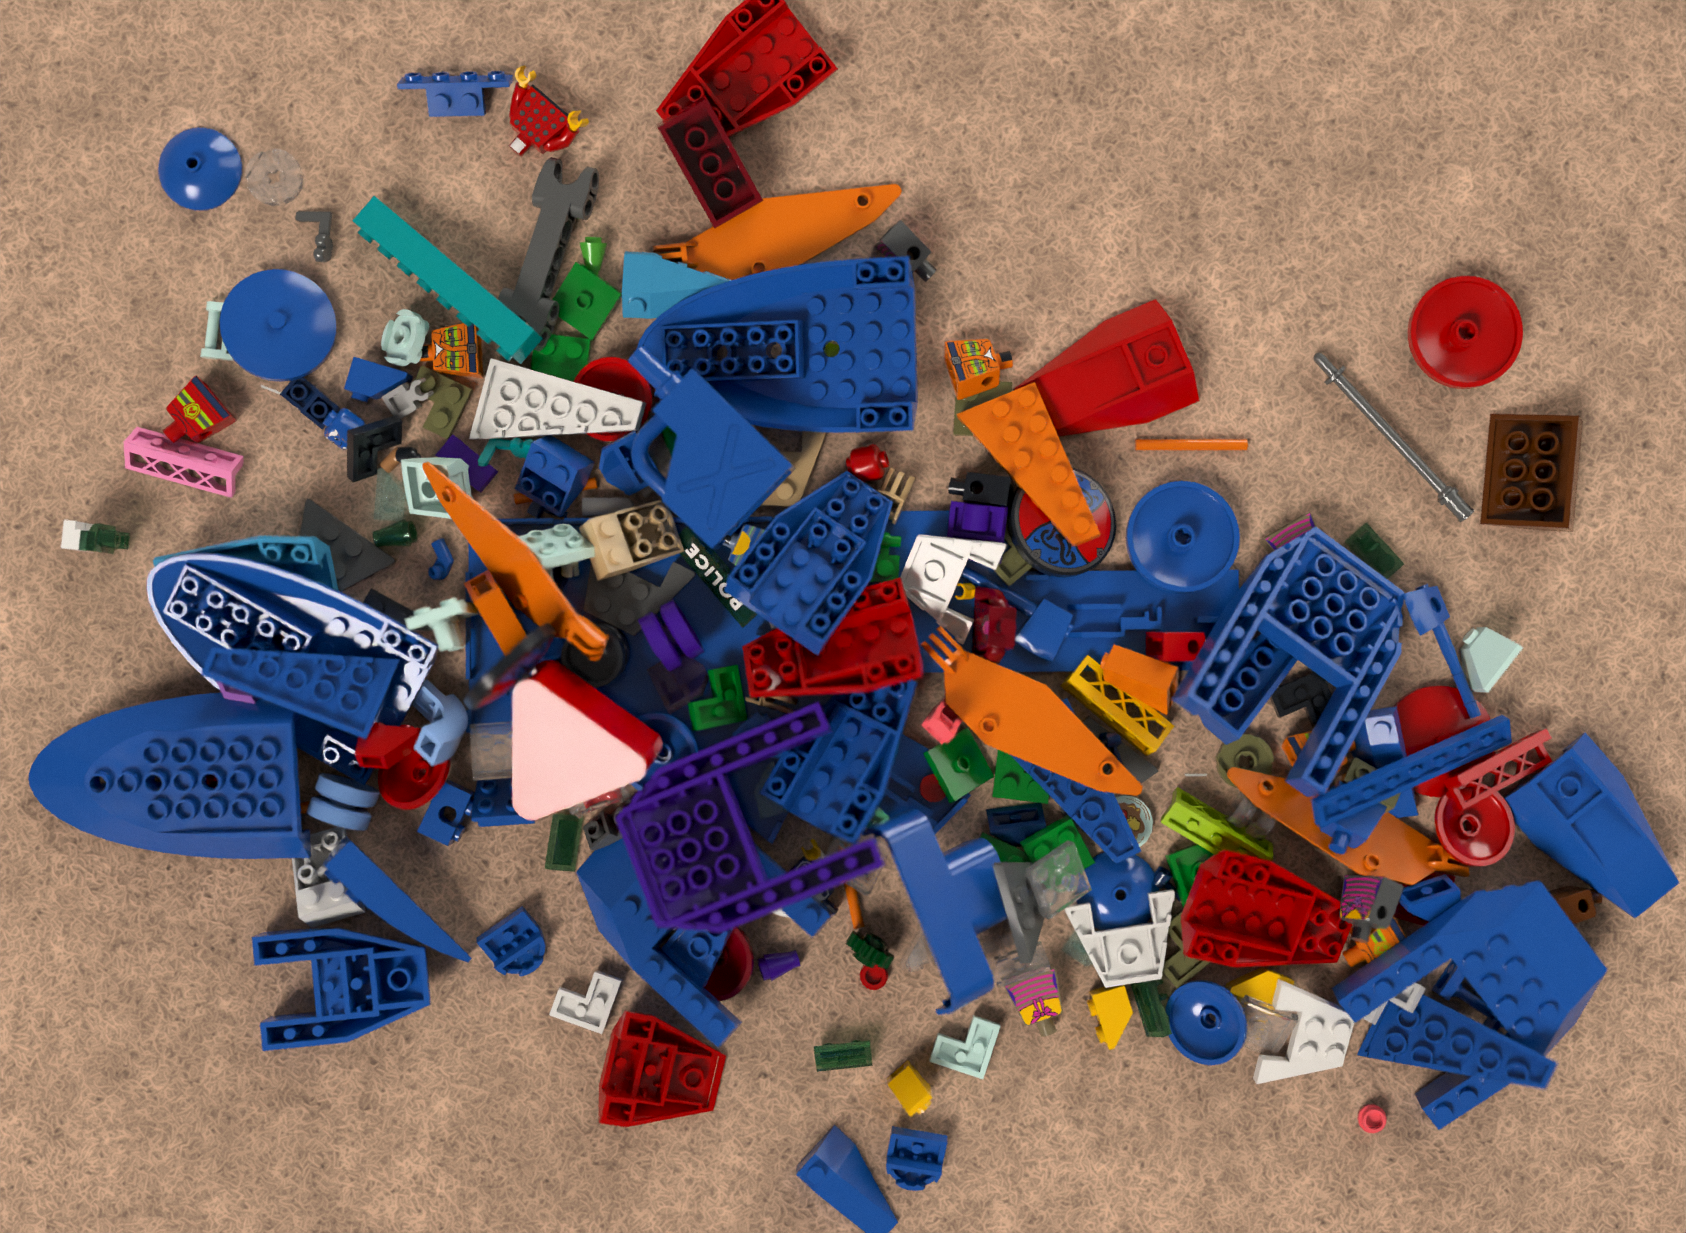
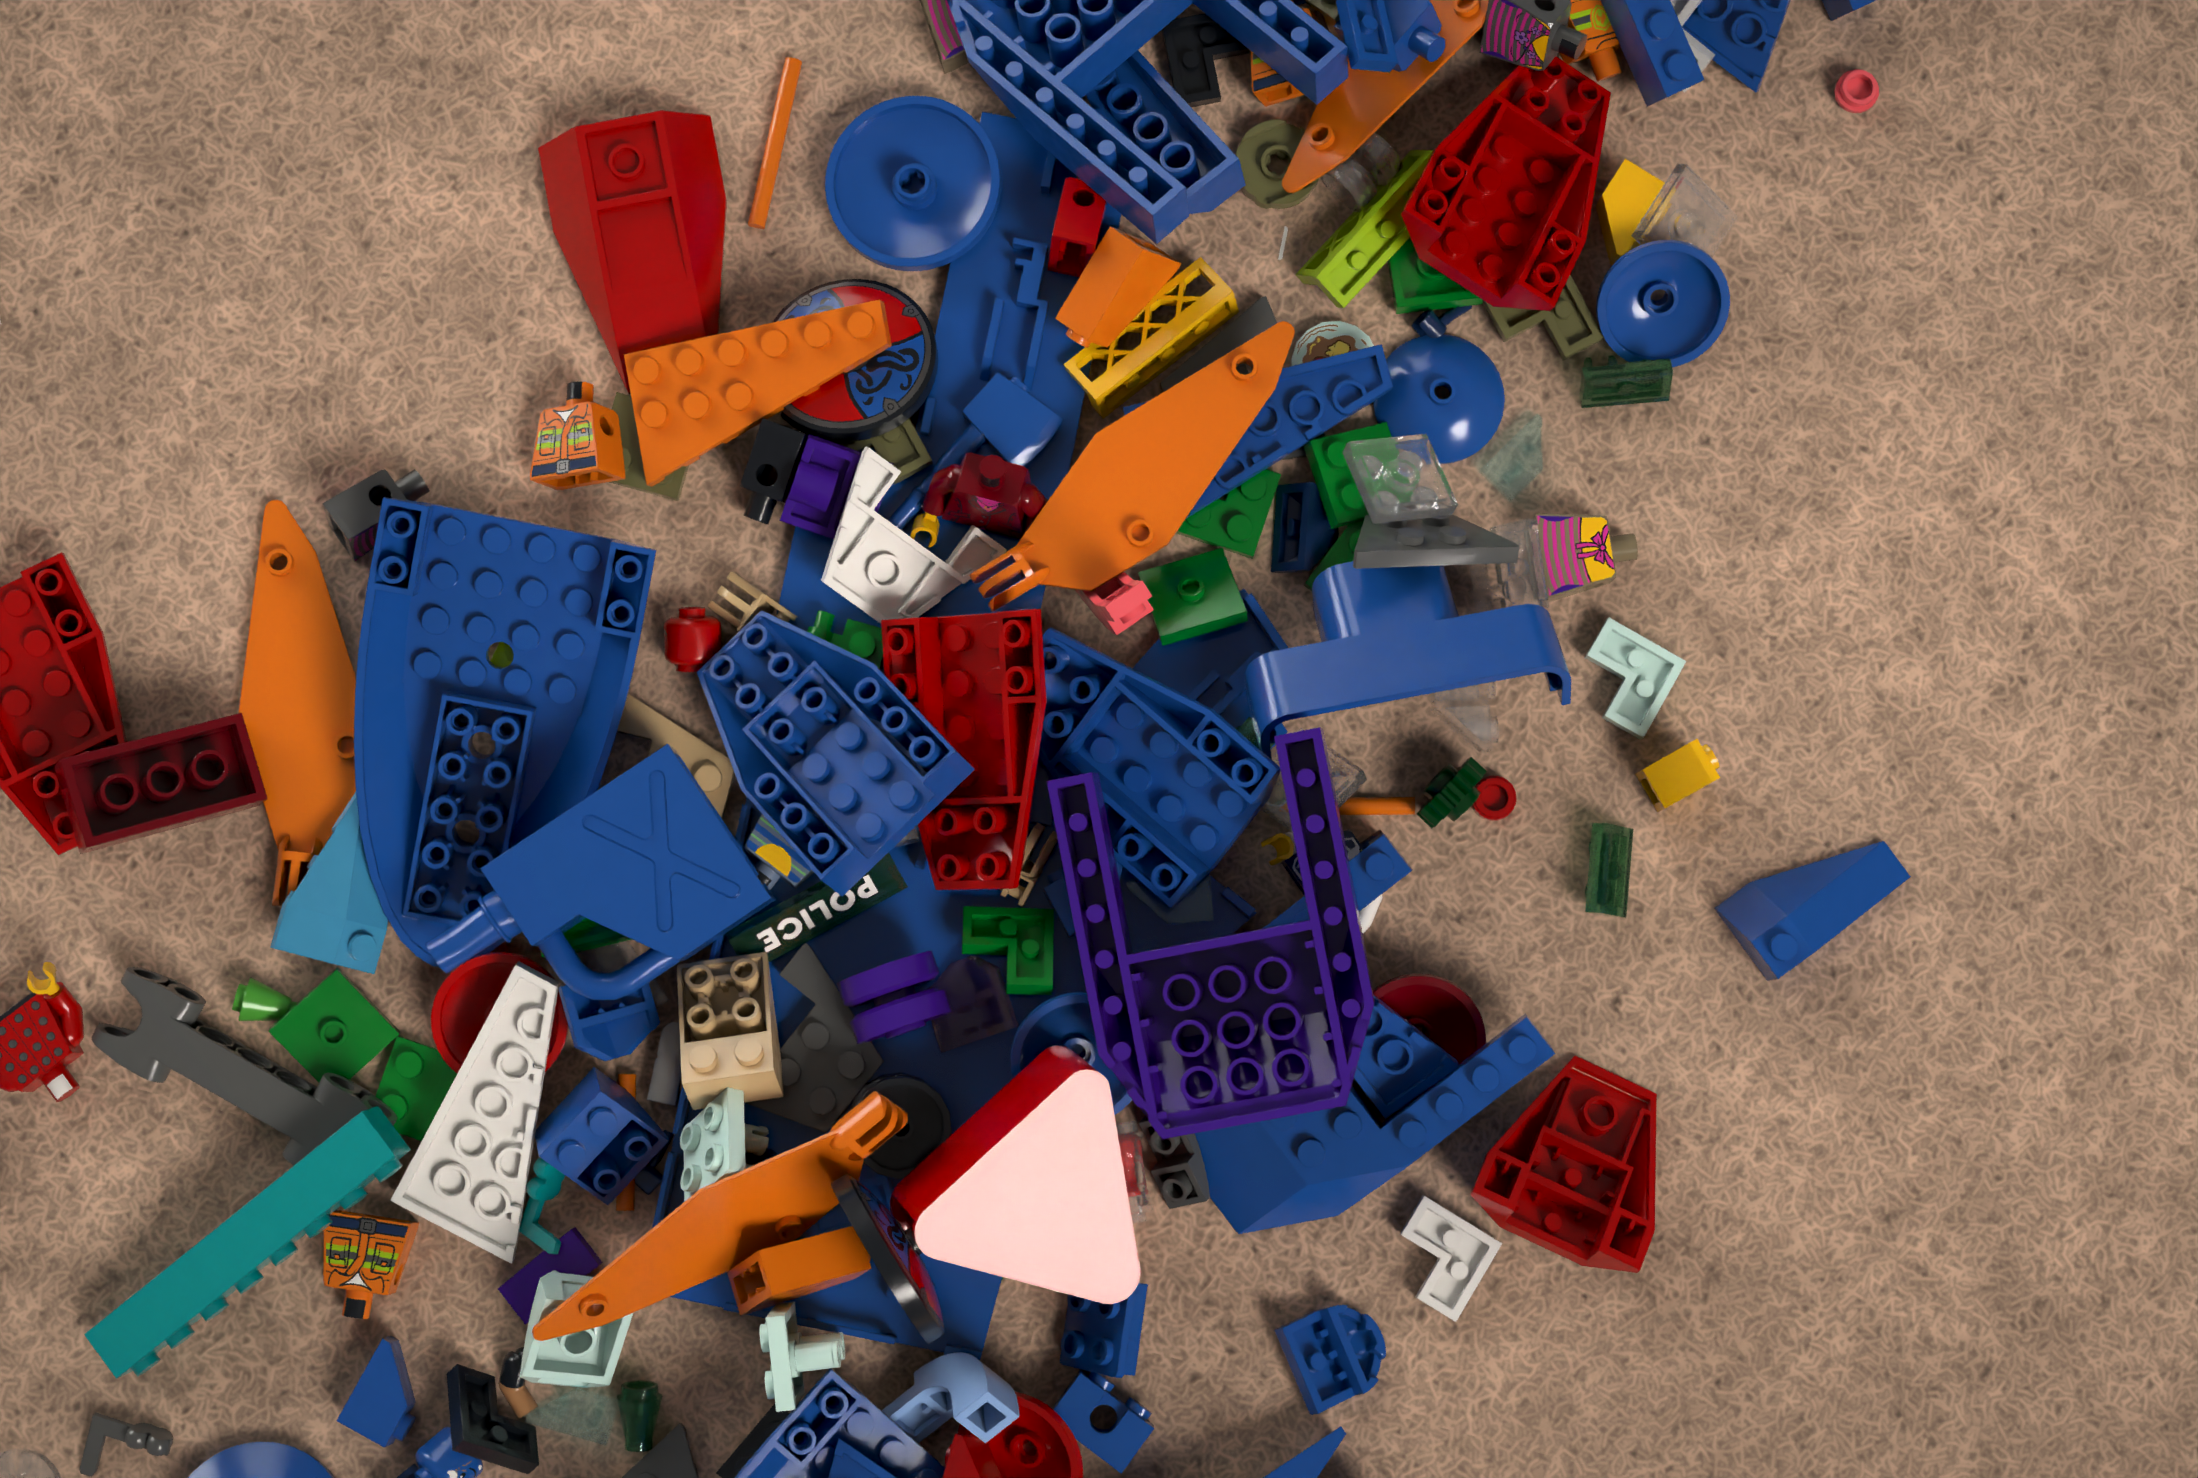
camera: 85 degrees left, 5 degrees down
(404, 338) = (319, 1313): light aqua plate -> none
(406, 398) = (425, 1353): light grey plate -> none
(443, 562) = (698, 1345): blue arm -> none
(449, 401) = (438, 1284): olive plate -> none
(491, 750) = (1018, 1321): clear plate -> none
(563, 842) = (1187, 1243): clear green slope -> none
(777, 964) = (1447, 945): dark purple cone -> none
(915, 1157) = (1787, 791): blue slope -> none
(931, 789) = (1221, 646): red tile -> none
(1111, 741) = (1204, 354): dark blue hand -> none
(1112, 1011) = (1619, 443): yellow slope -> none
(1126, 952) = (1533, 398): white wing -> none
(1316, 1041) = (1724, 147): white wing -> none

